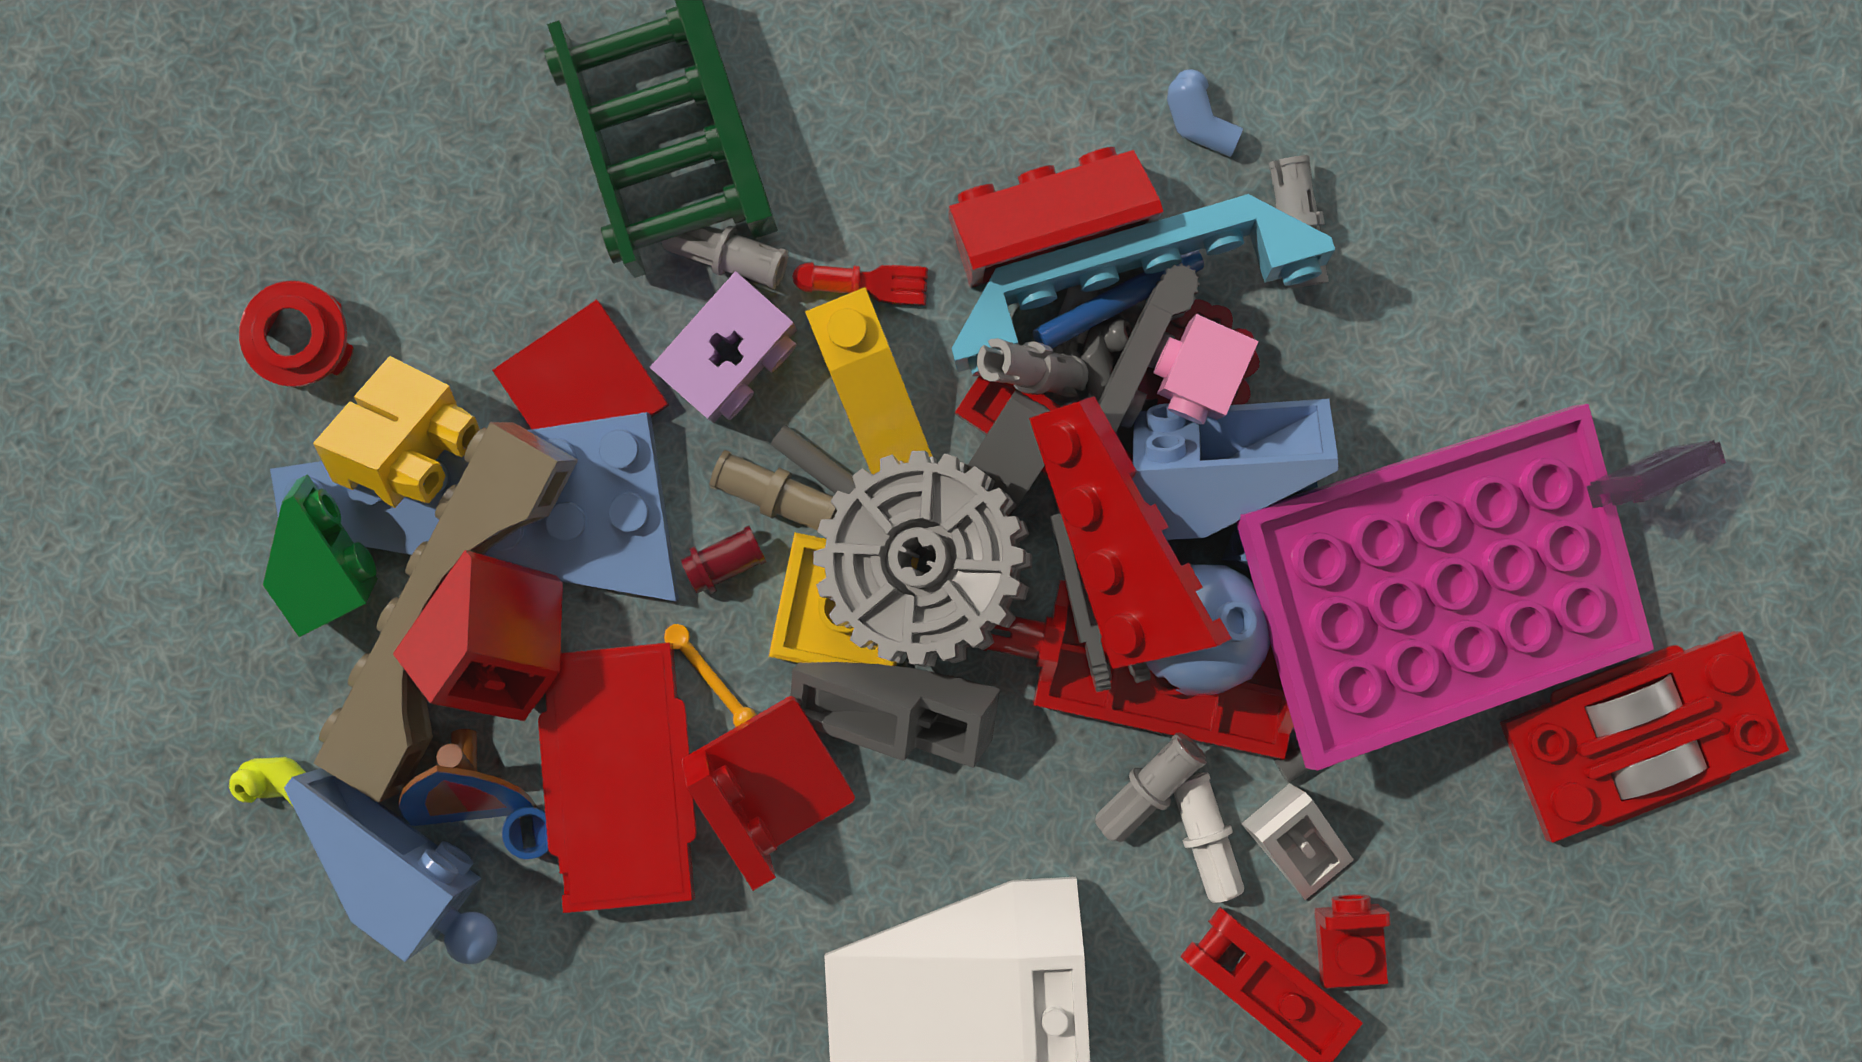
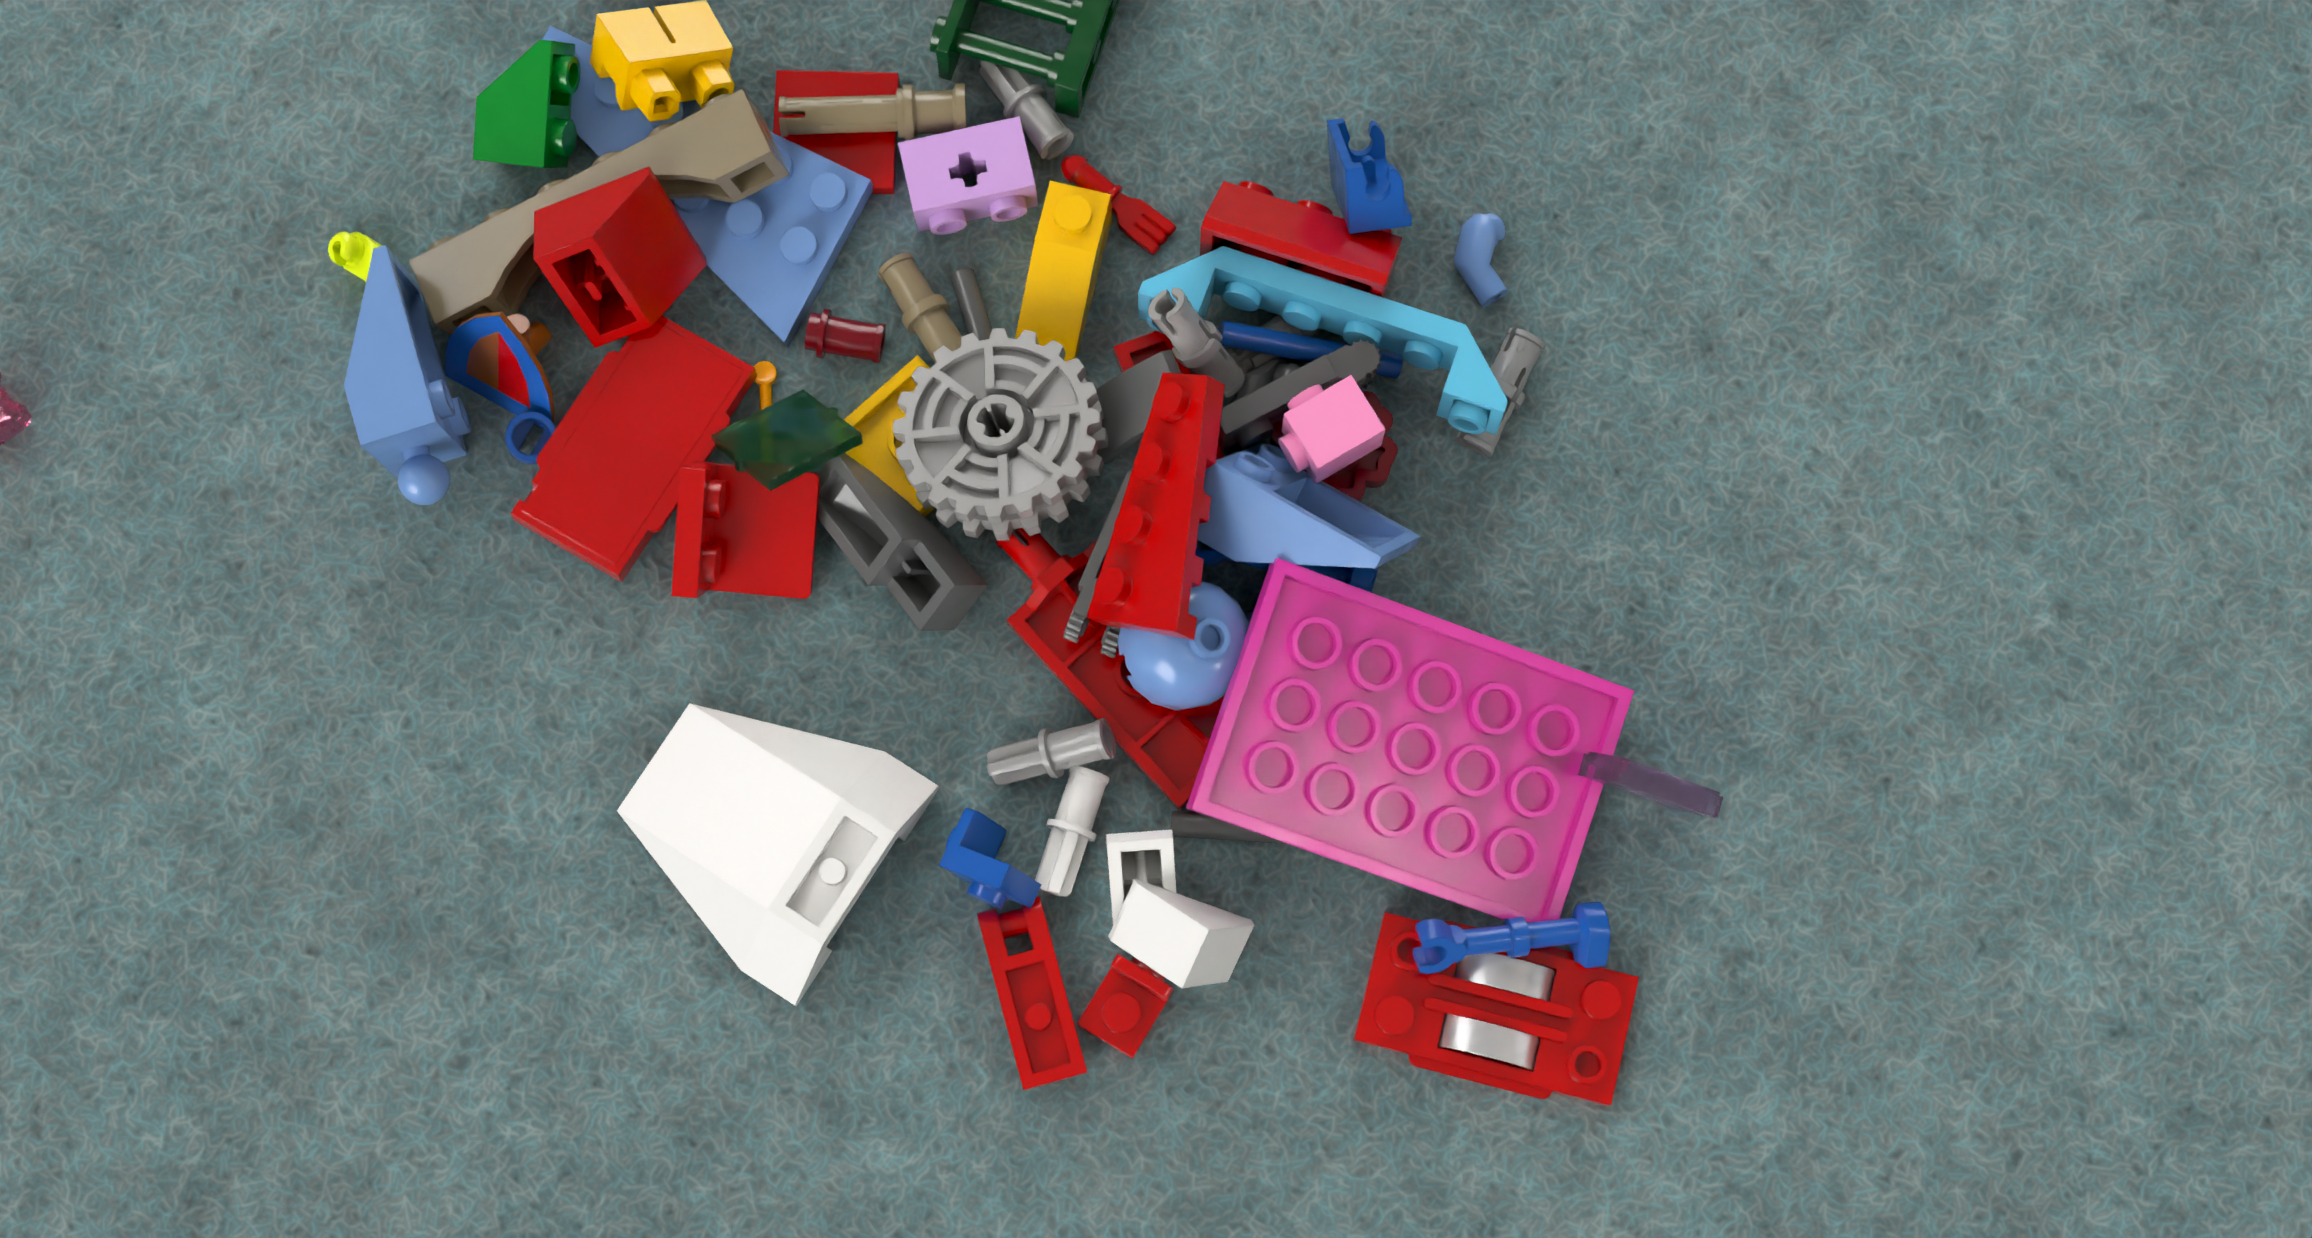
camera: 35 degrees right, 10 degrees down
(633, 332) = (907, 112): none -> dark tan pin
(745, 686) = (787, 439): none -> clear green piece
(1067, 123) = (1364, 182): none -> blue hinge
(1177, 926) = (972, 855): none -> blue bracket
(1361, 866) = (1180, 935): none -> white slope
(1679, 628) = (1584, 932): none -> blue piece

